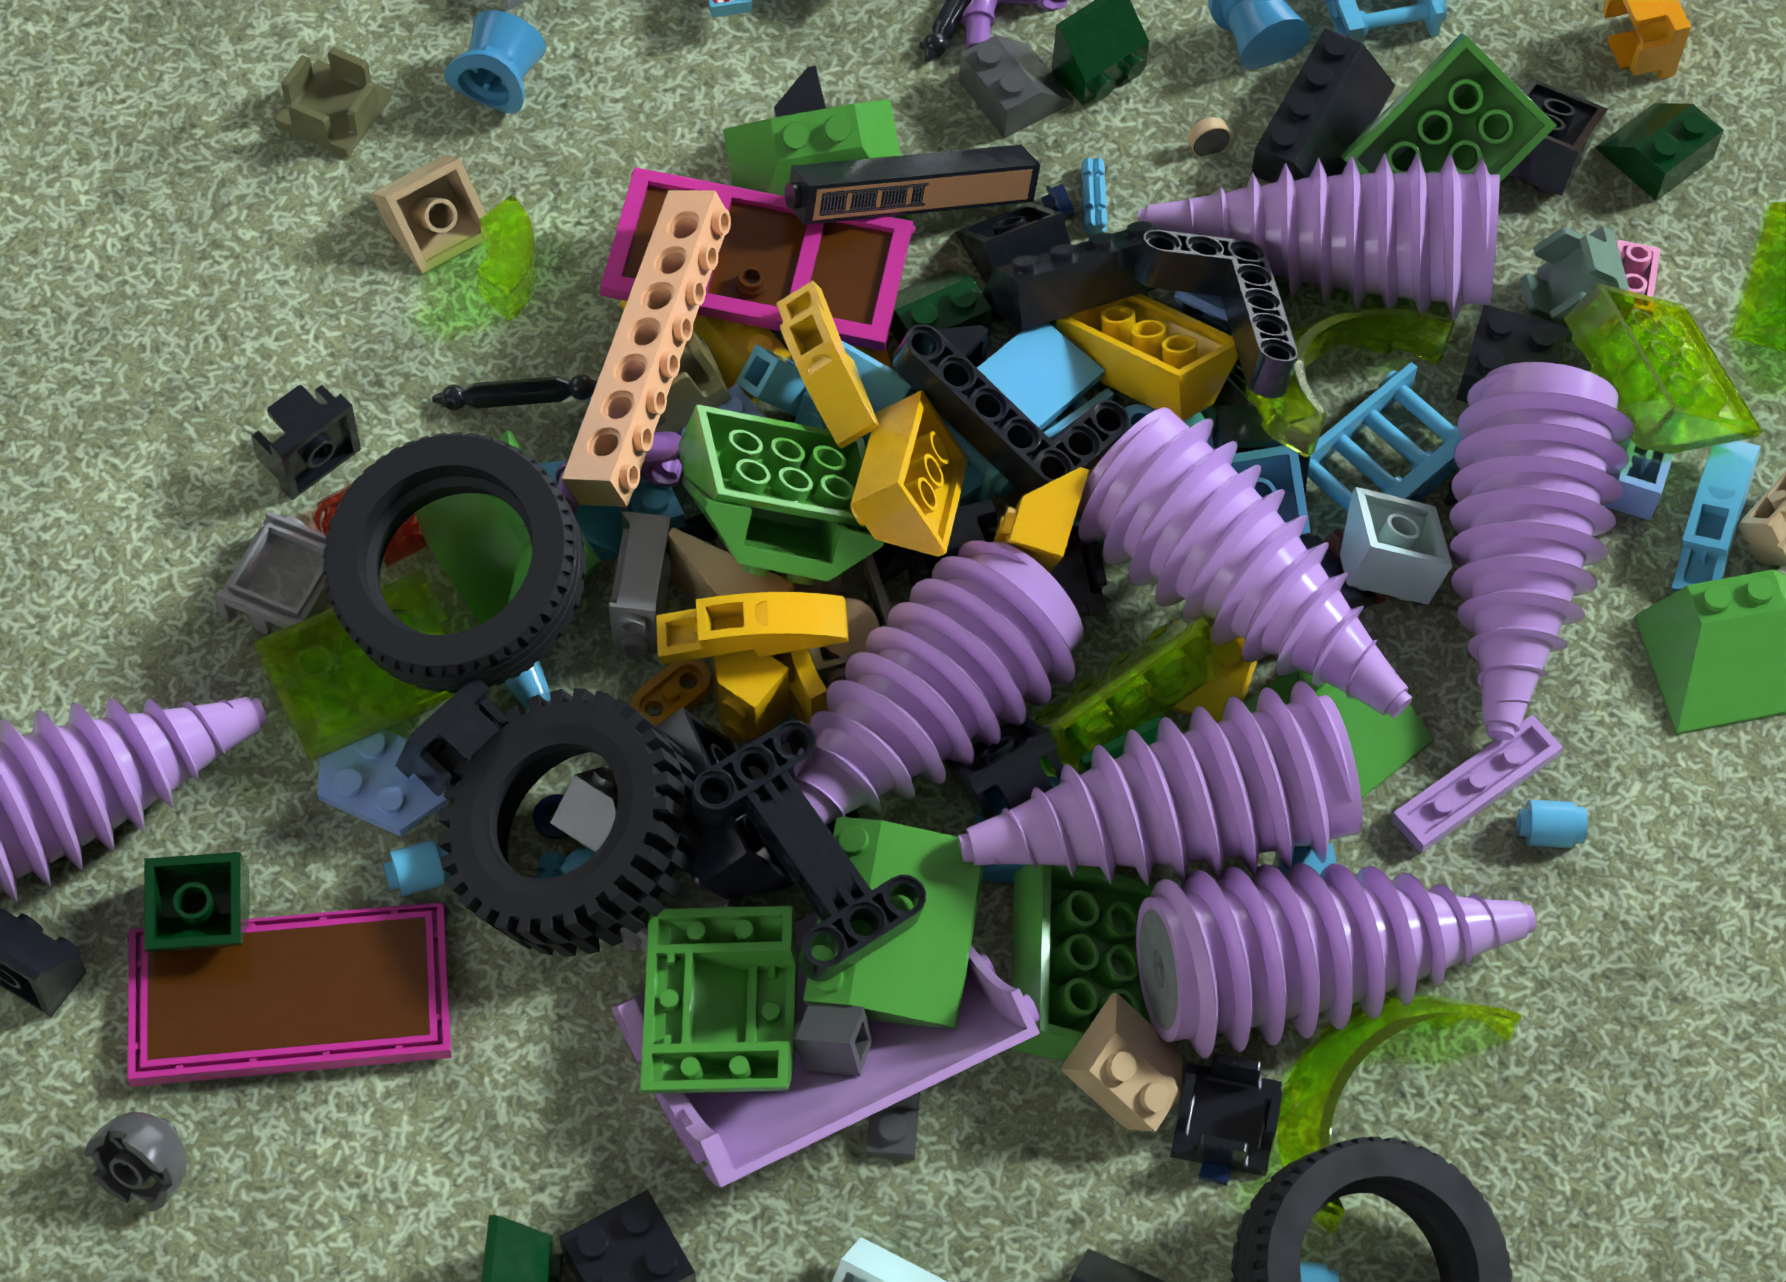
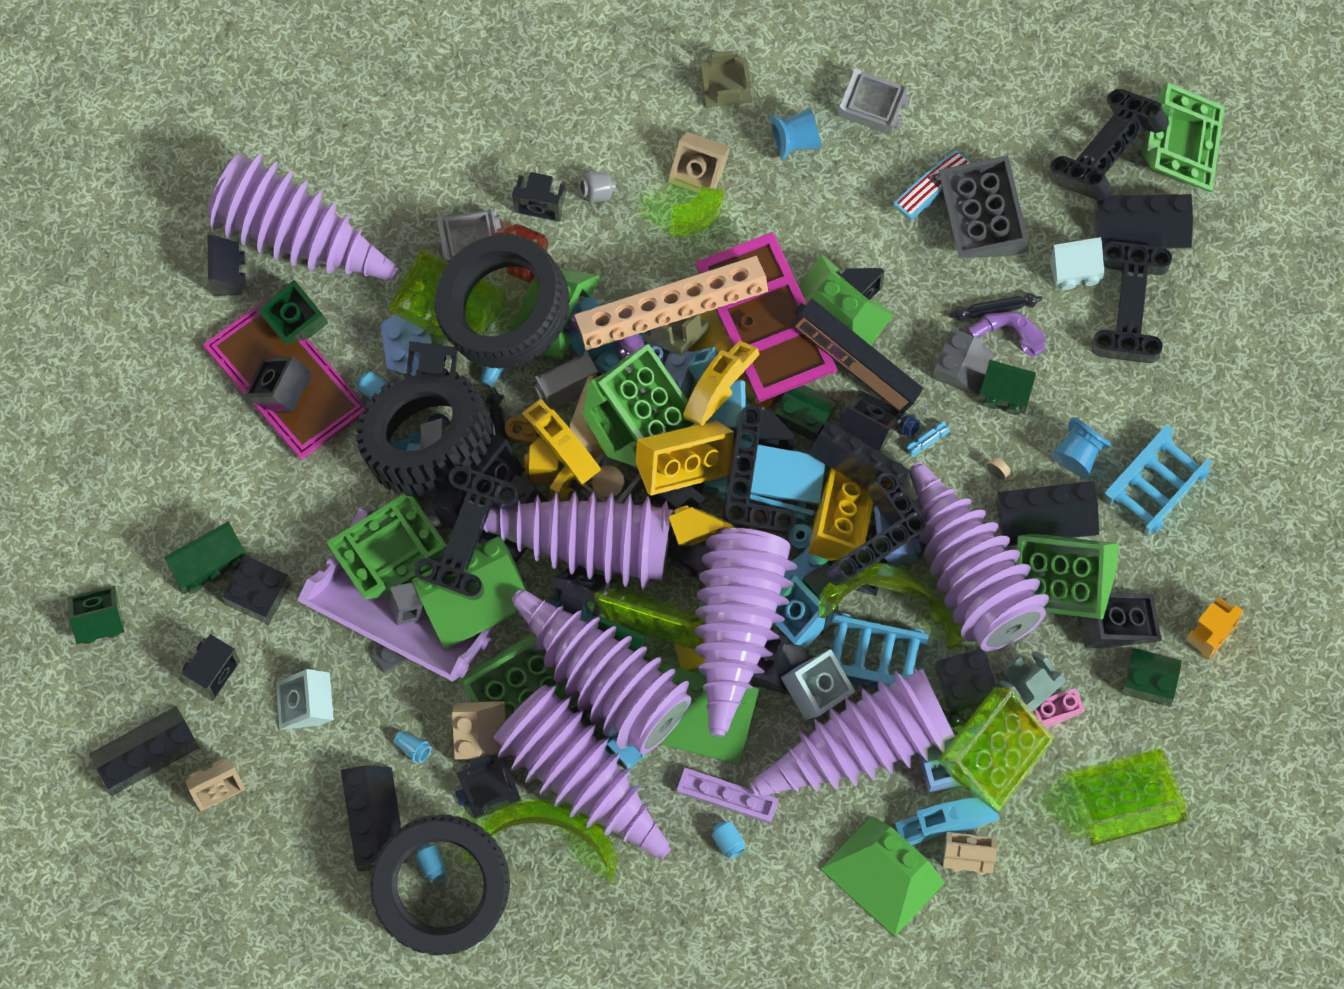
camera: 60 degrees right, 10 degrees up
(133, 1150) = (174, 372): dark grey cylinder -> none
(298, 1000) = (278, 384): none -> black slope
(352, 360) = (597, 186): none -> light grey head
(516, 392) = (628, 262): black wheel -> none
(1078, 1190) = (413, 747): none -> medium azure cone

